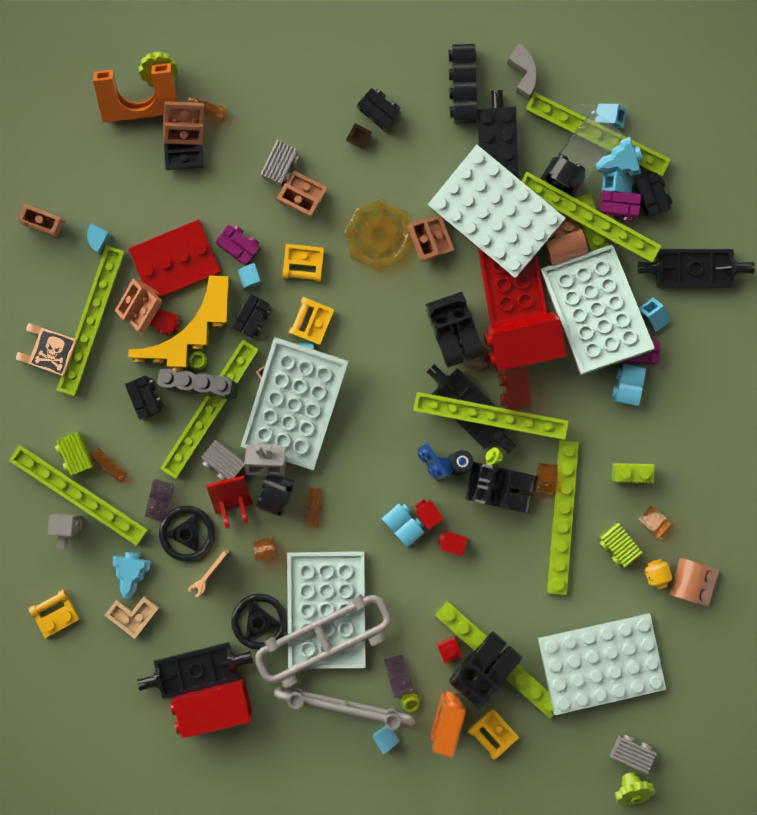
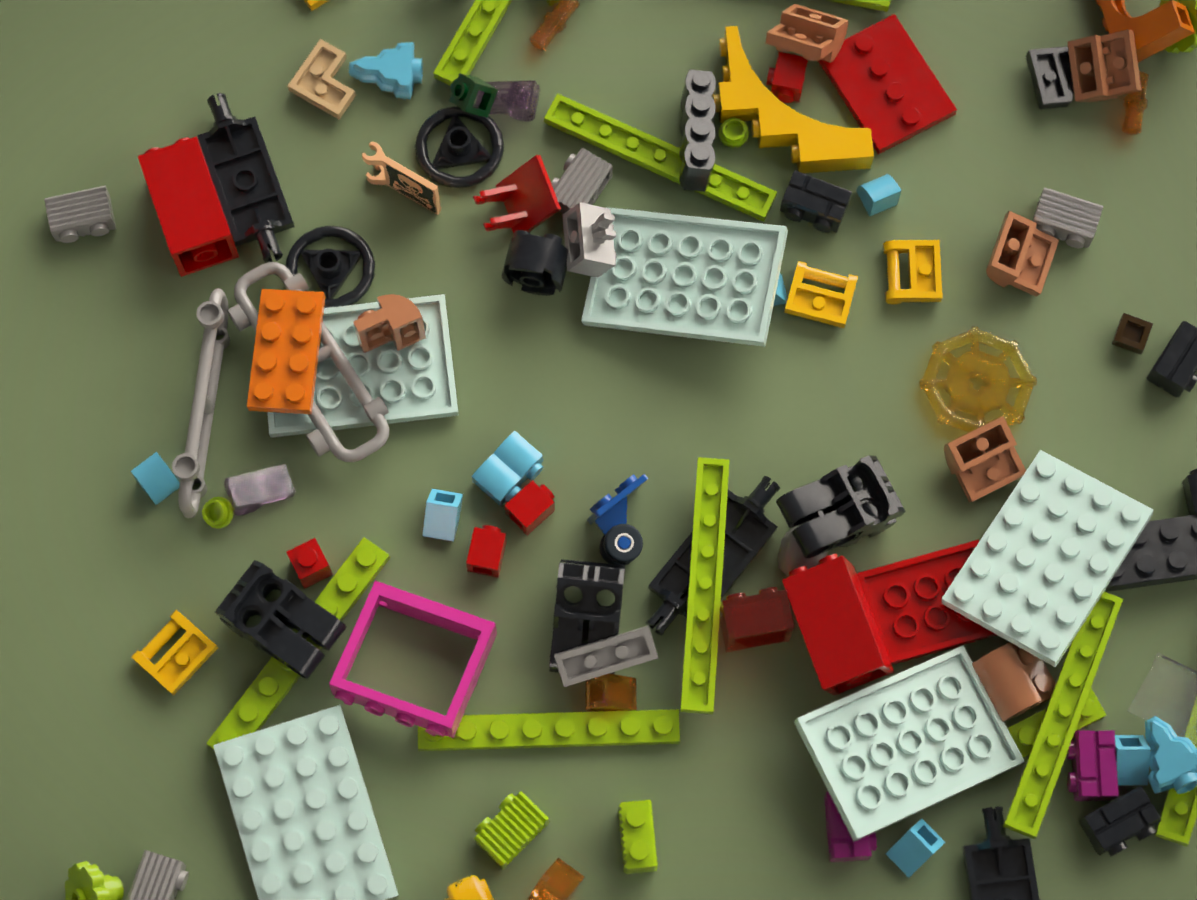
camera: 90 degrees right, 15 degrees down
(143, 397) = (665, 60): black brick -> none
(153, 525) = (465, 91): none -> dark green brick
(207, 776) = (80, 214): none -> light grey brick
(238, 245) = (925, 169): magenta brick -> none
(264, 548) = (447, 260): clear orange brick -> none
(307, 585) = (394, 321): none -> nougat brick
(313, 507) = (521, 329): clear orange pin -> none
(317, 654) = (286, 351): none -> orange plate
(426, 567) = (442, 514): none -> medium azure brick
(447, 723) = (187, 557): orange arch -> none
(494, 457) = (637, 598): lime plate -> none
(529, 479) = (606, 656): none -> light grey plate
(549, 601) = (435, 614): none -> dark pink window
(564, 174) = (1127, 662): black brick -> none
(629, 385) = (787, 815): medium azure brick -> none

